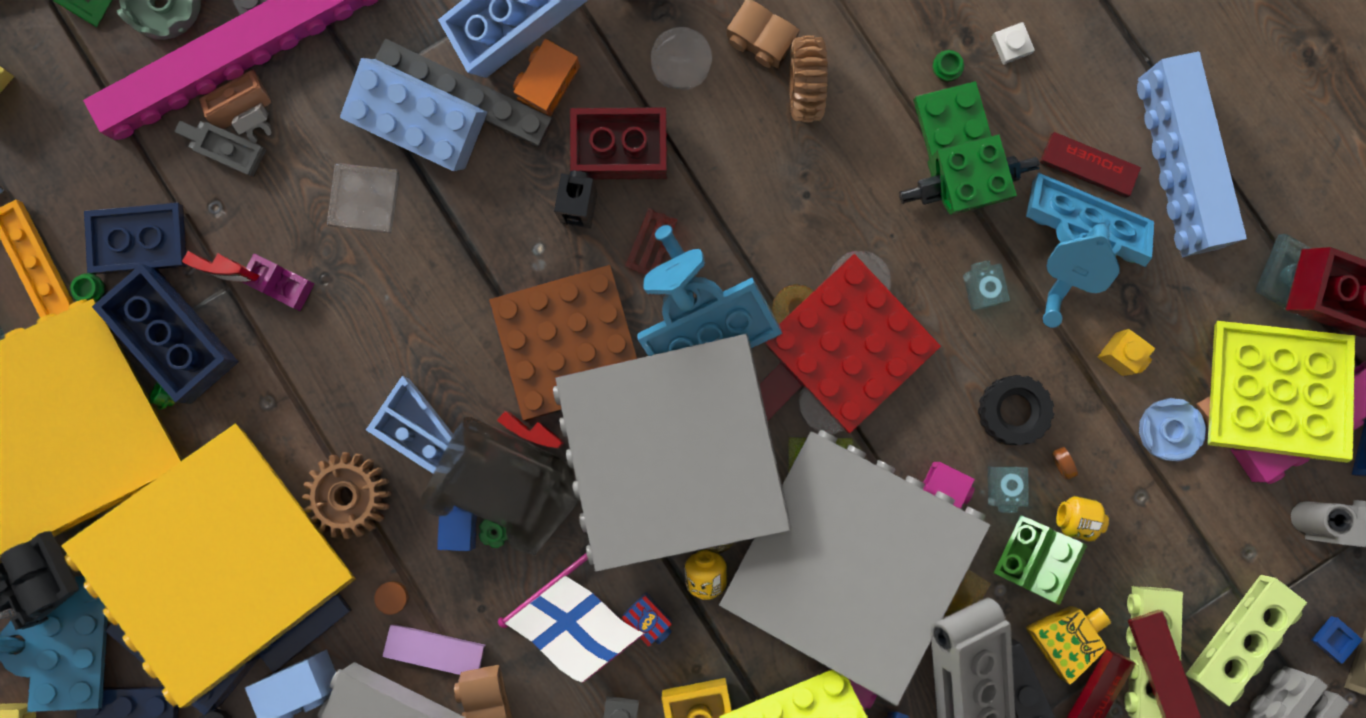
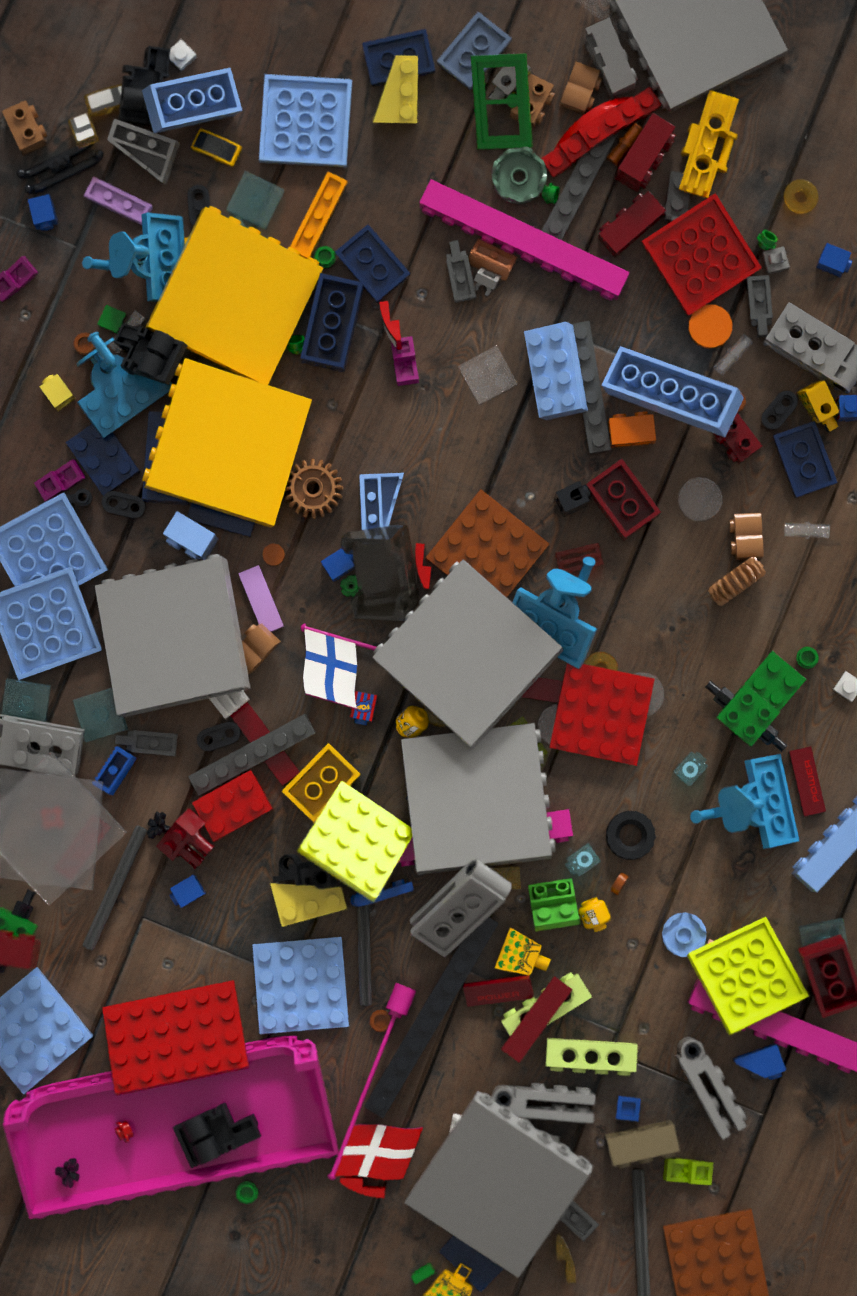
camera: 60 degrees right, 0 degrees up
(1127, 353) = (708, 876): yellow brick -> none

